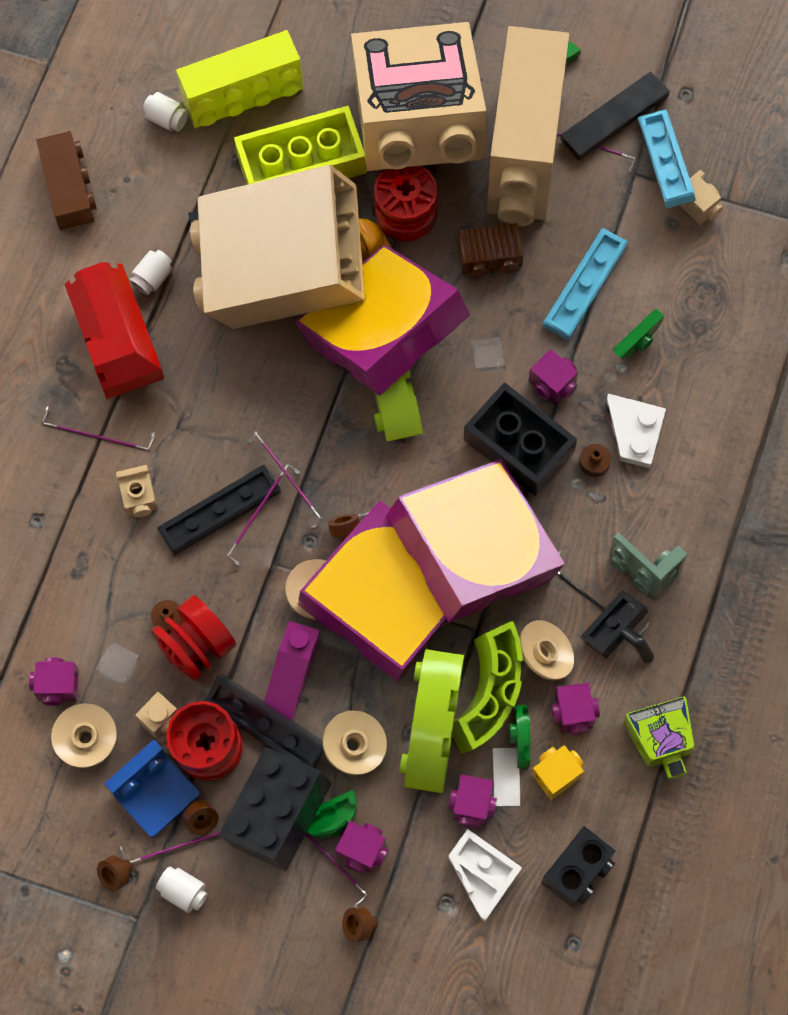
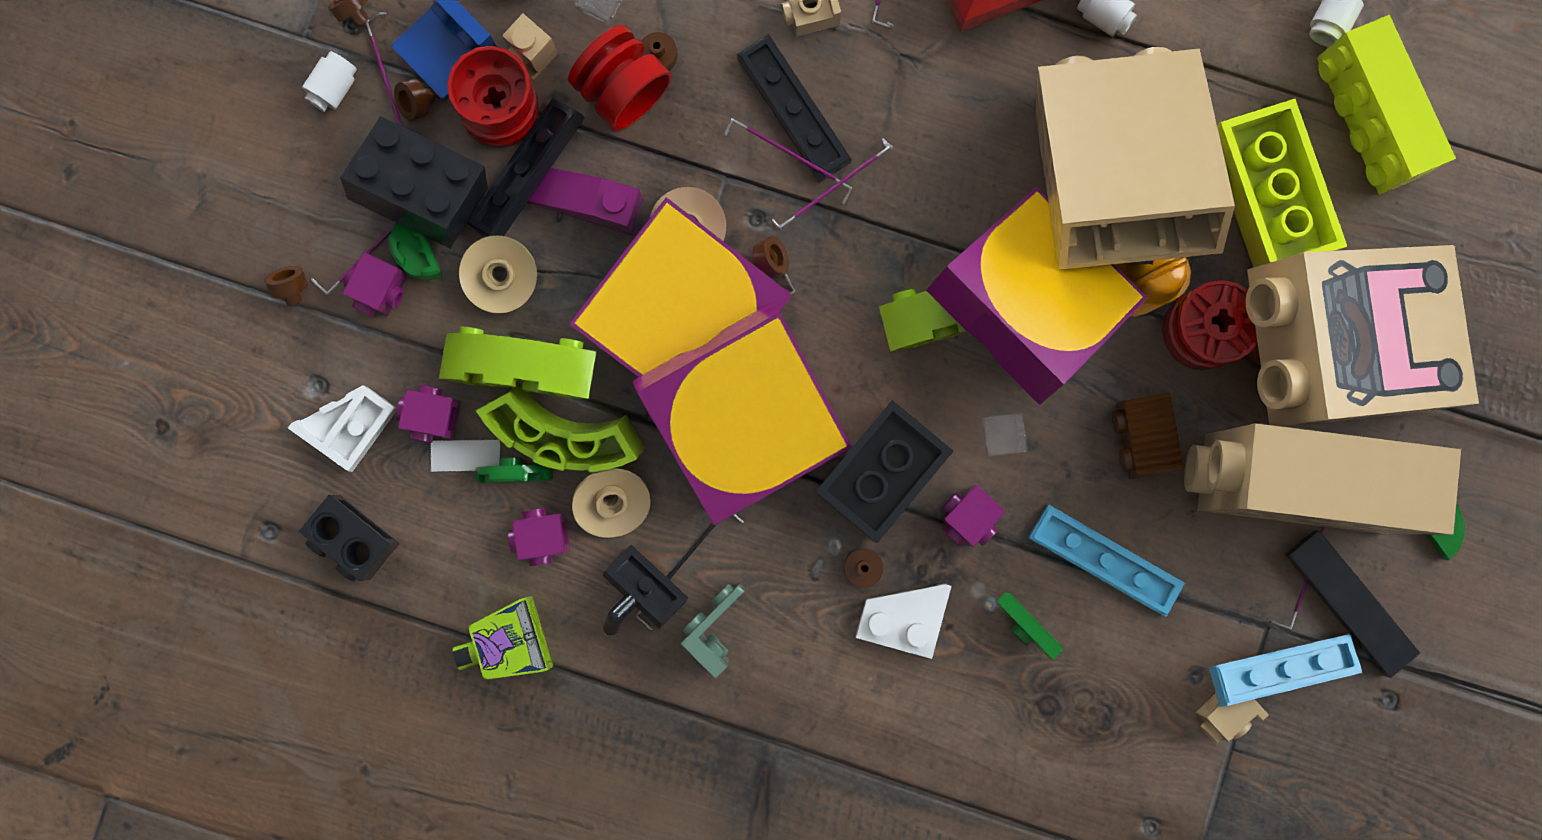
camera: 90 degrees right, 15 degrees up
(558, 771) = (463, 515): yellow brick -> none

